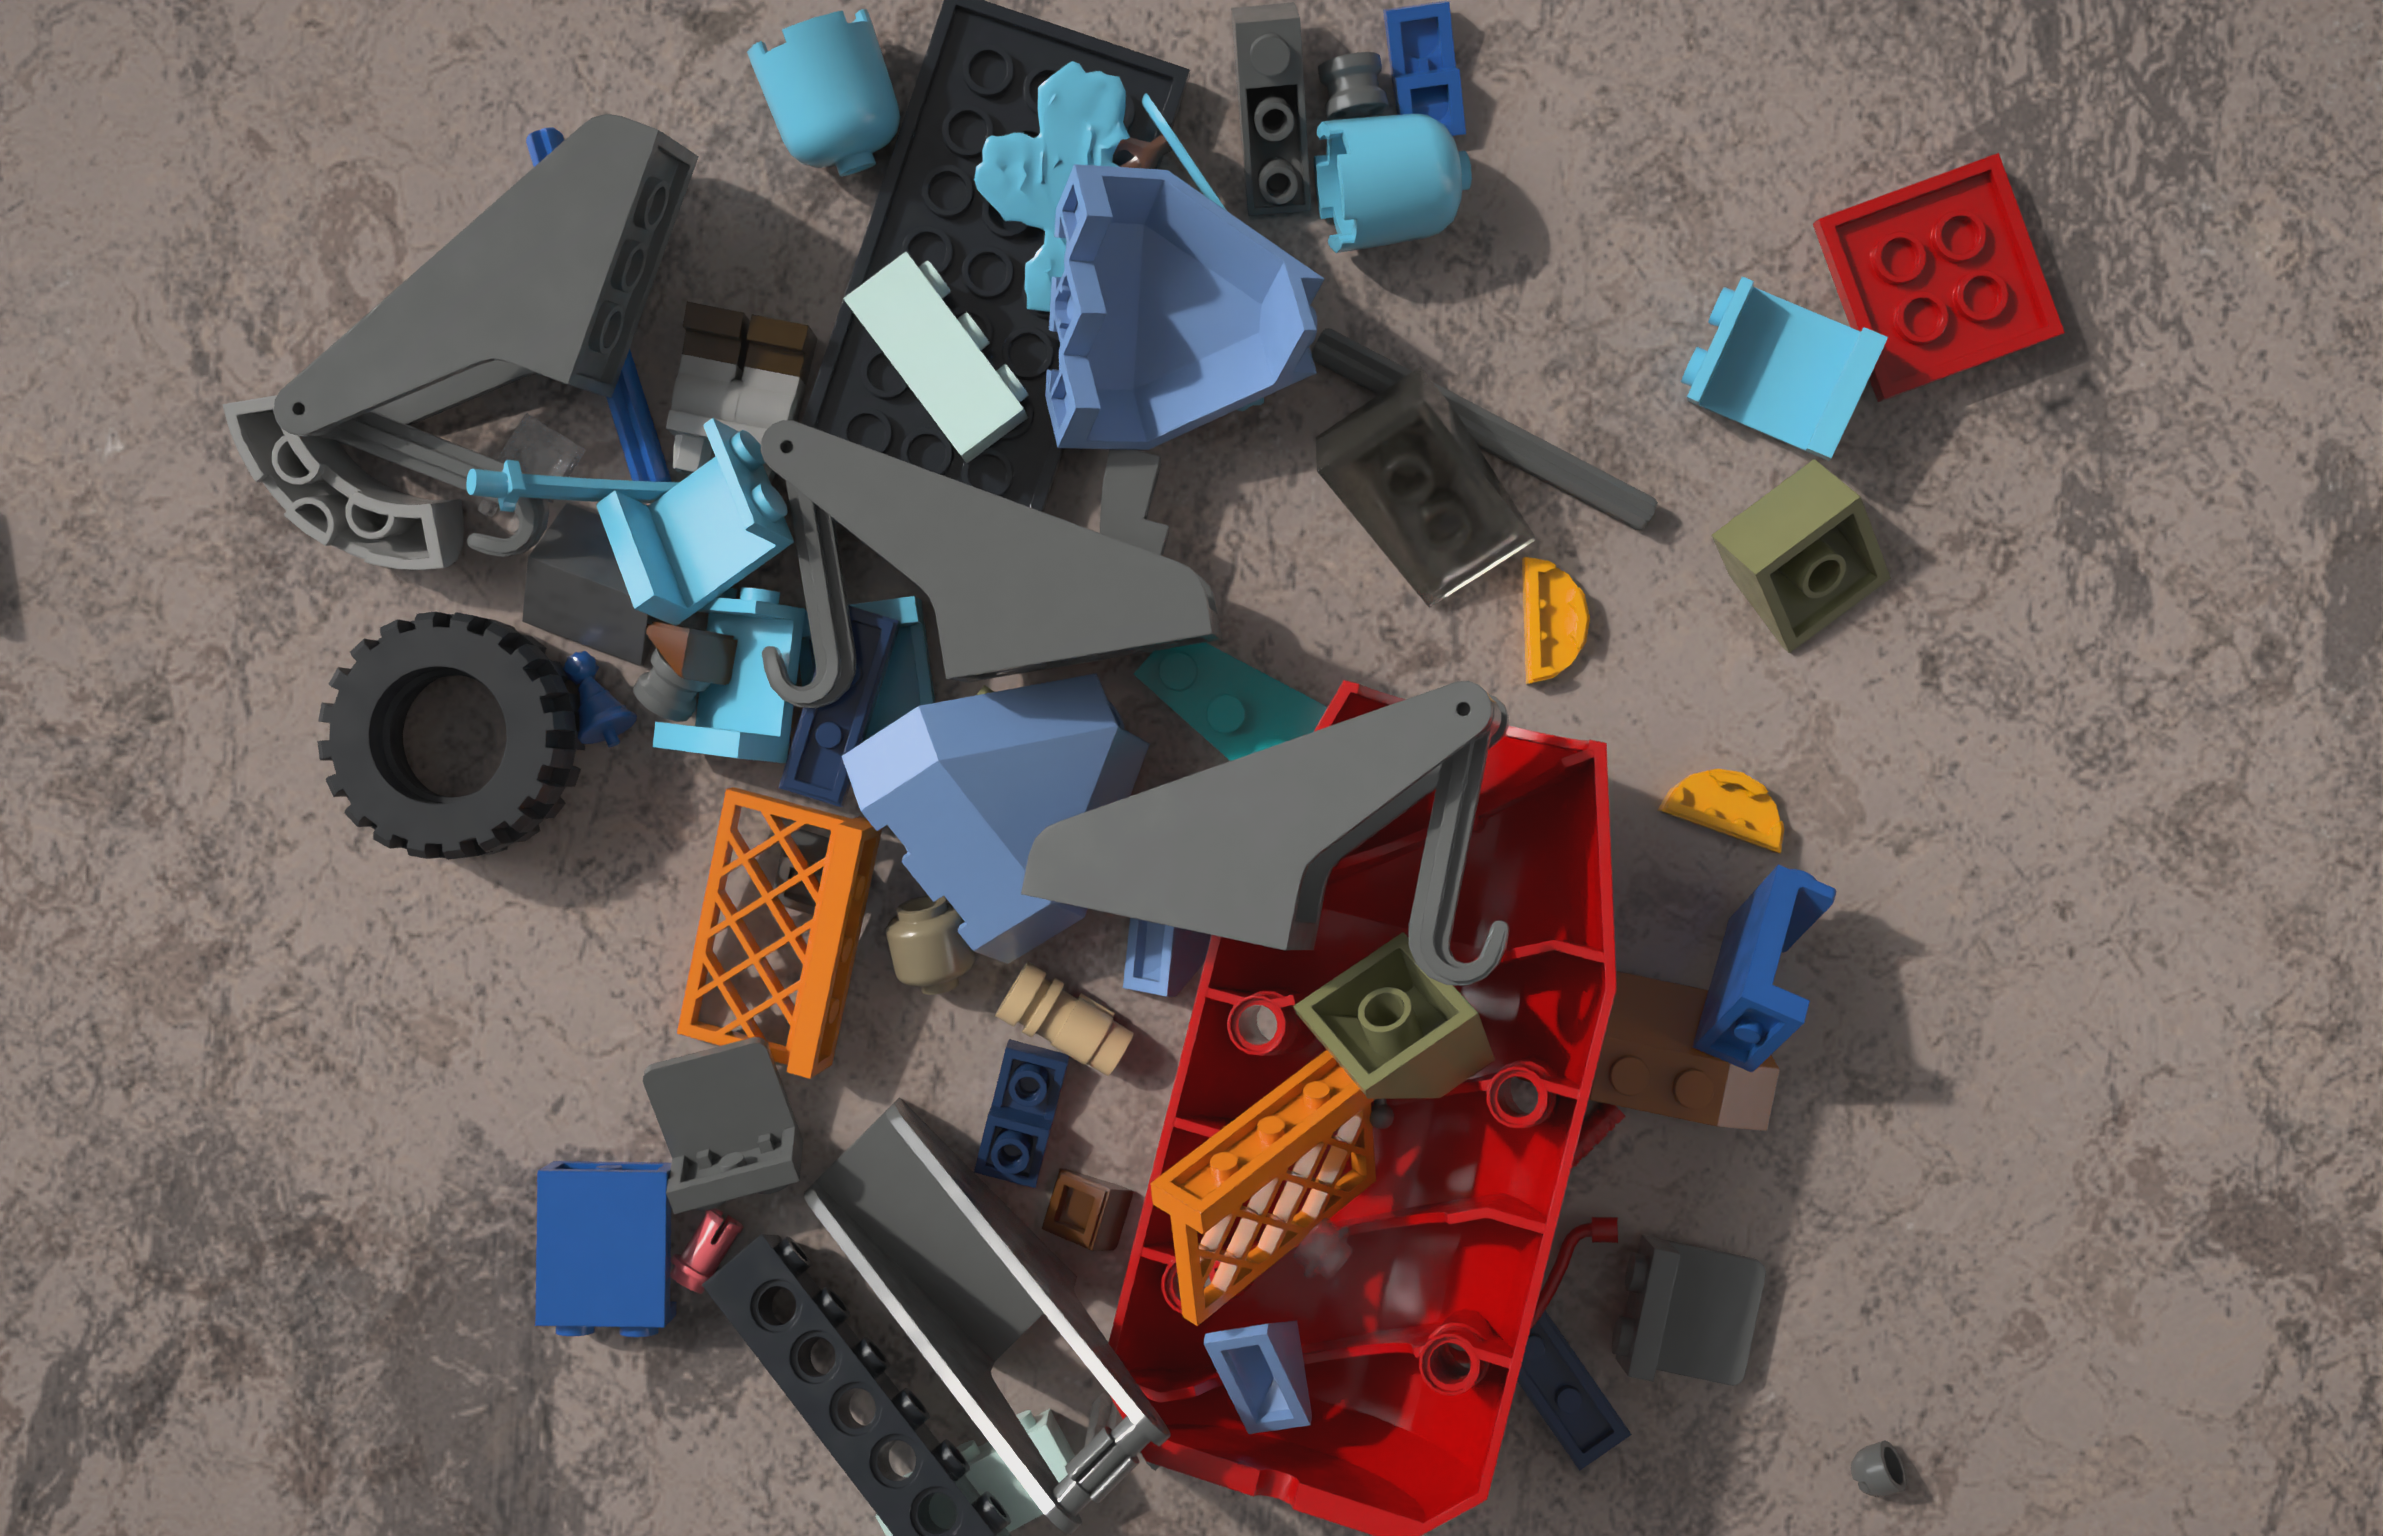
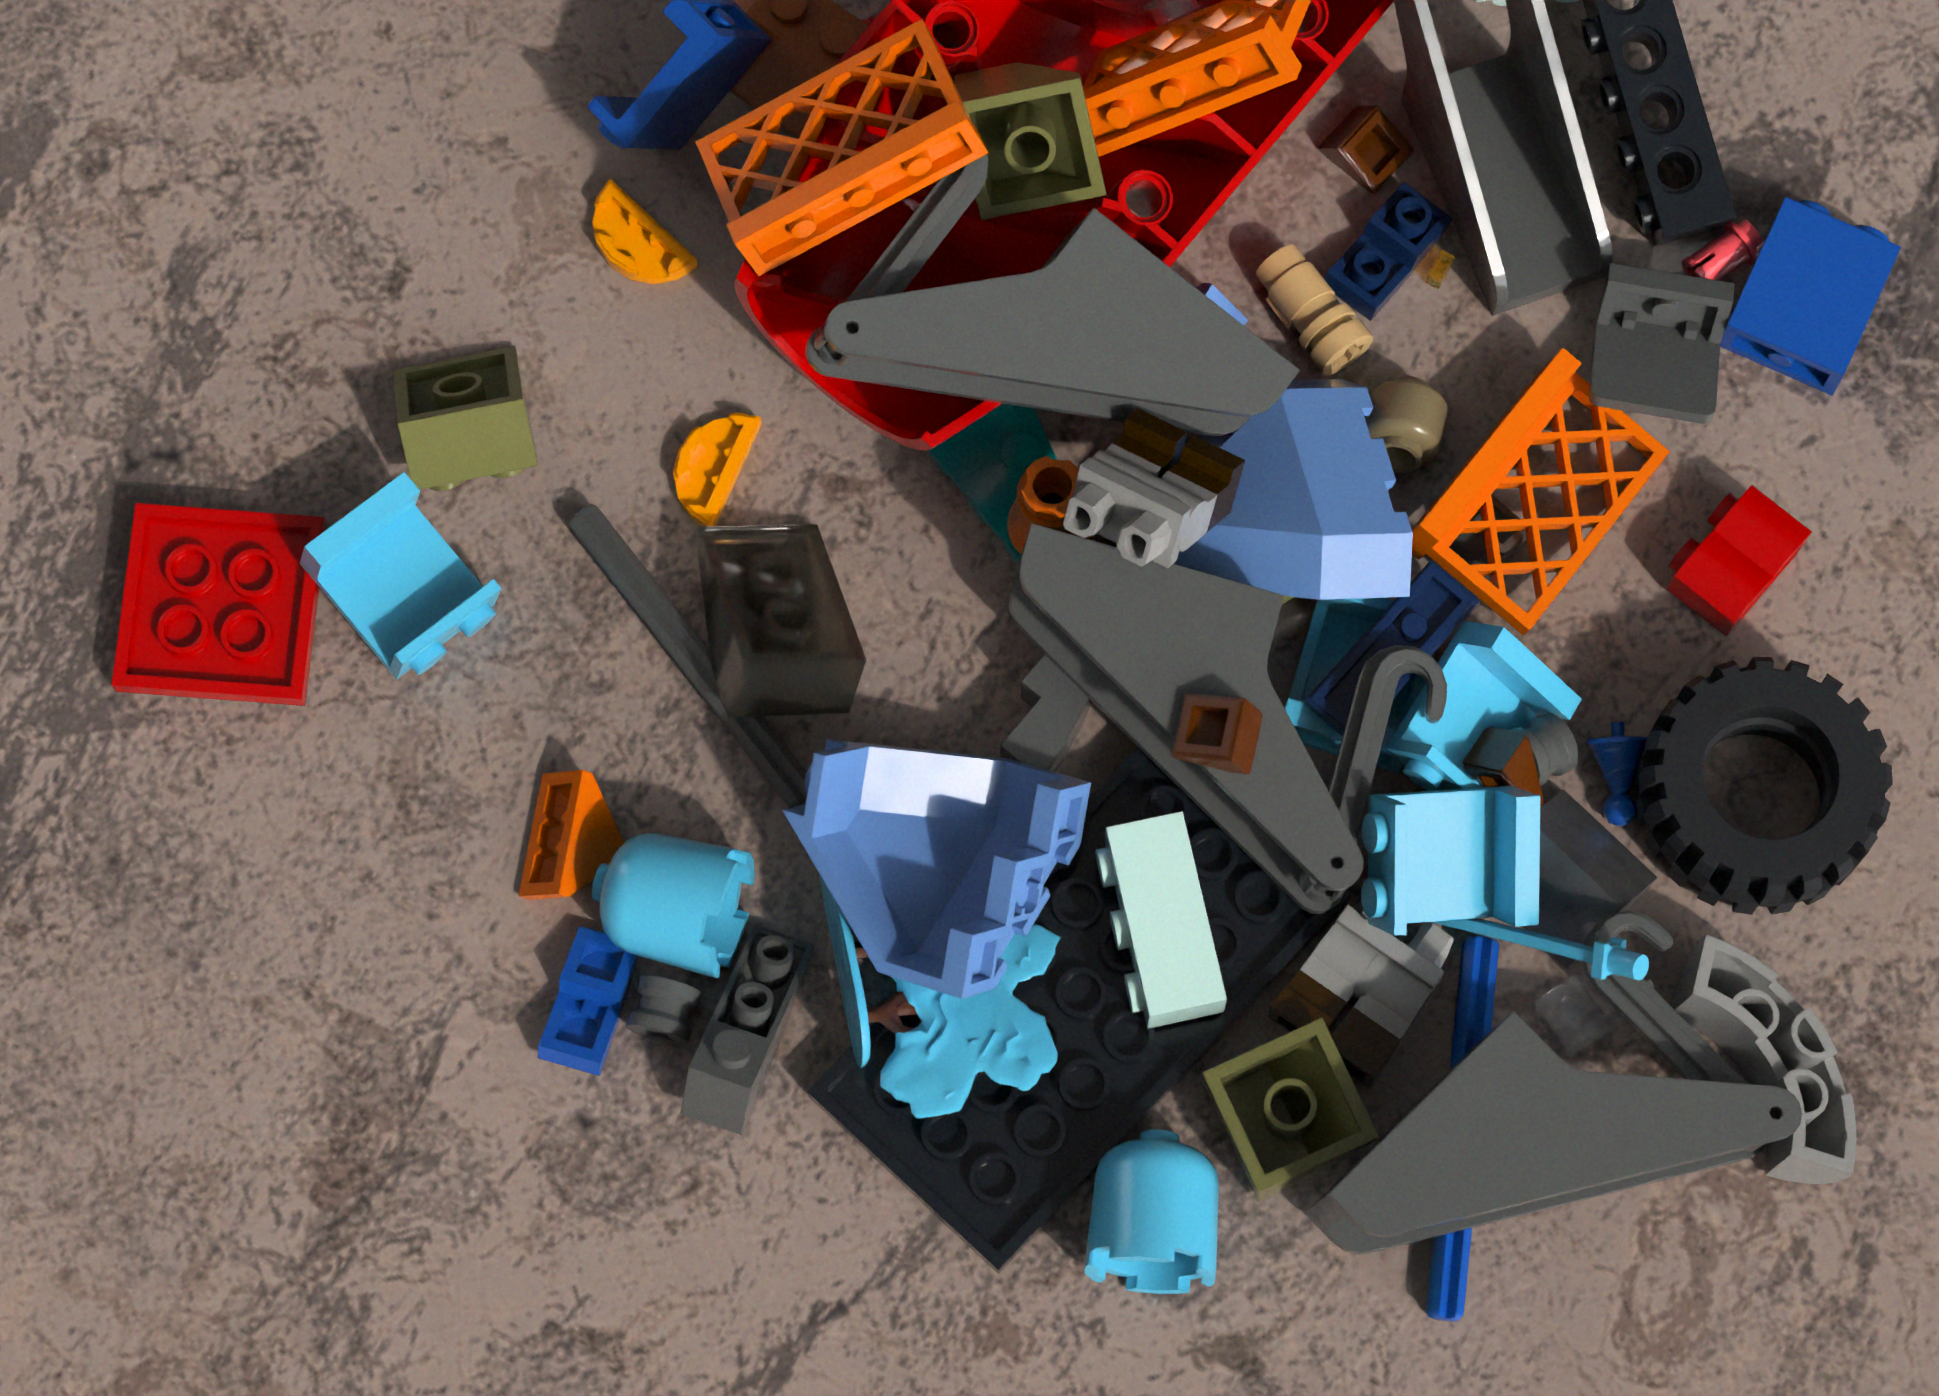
camera: 155 degrees left, 15 degrees down
(569, 952) = (1737, 560): none -> red brick
(751, 237) = (1289, 1109): none -> olive slope
(947, 510) = (1218, 732): none -> reddish brown slope
(965, 1118) = (1440, 269): none -> clear yellow piece
(1117, 697) = (1153, 491): none -> light grey hips
(1205, 722) = (1042, 482): none -> orange plant
(1512, 207) = (568, 836): none -> orange slope
(1538, 862) = (855, 181): none -> orange fence

